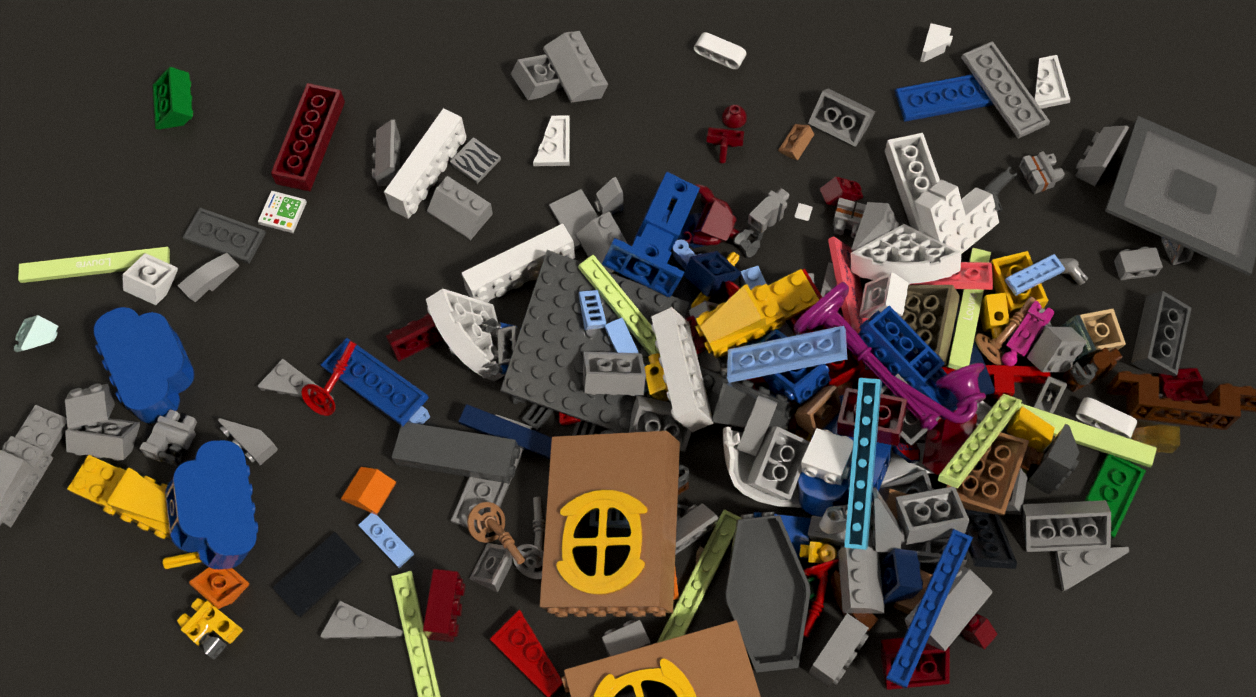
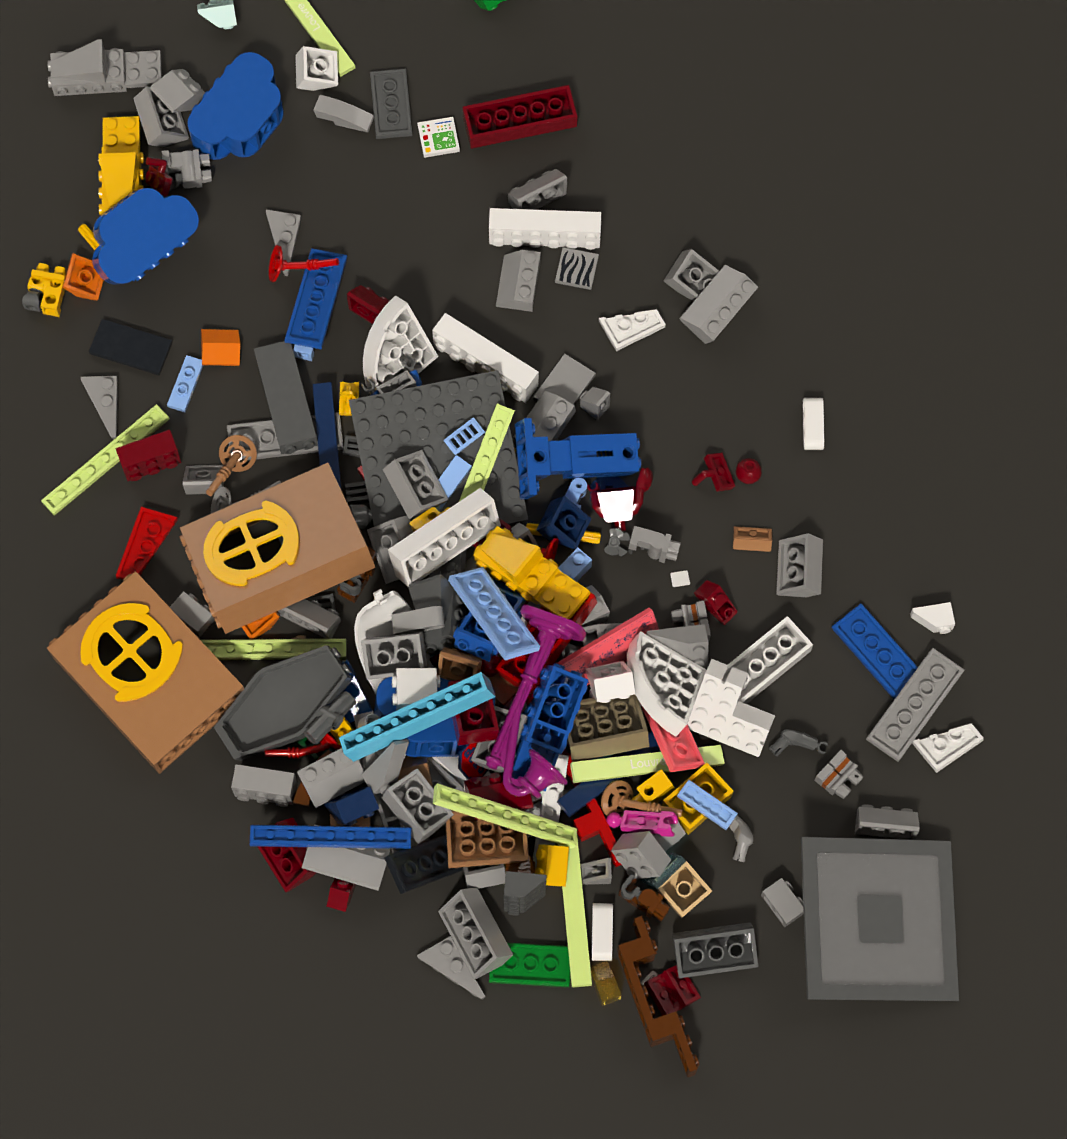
camera: 60 degrees right, 5 degrees up
(164, 465) = (157, 177): none -> dark red plate
(253, 440) = (214, 235): light grey slope -> none
(489, 398) = (347, 392): none -> yellow hips
(808, 553) = (330, 717): none -> dark grey piece

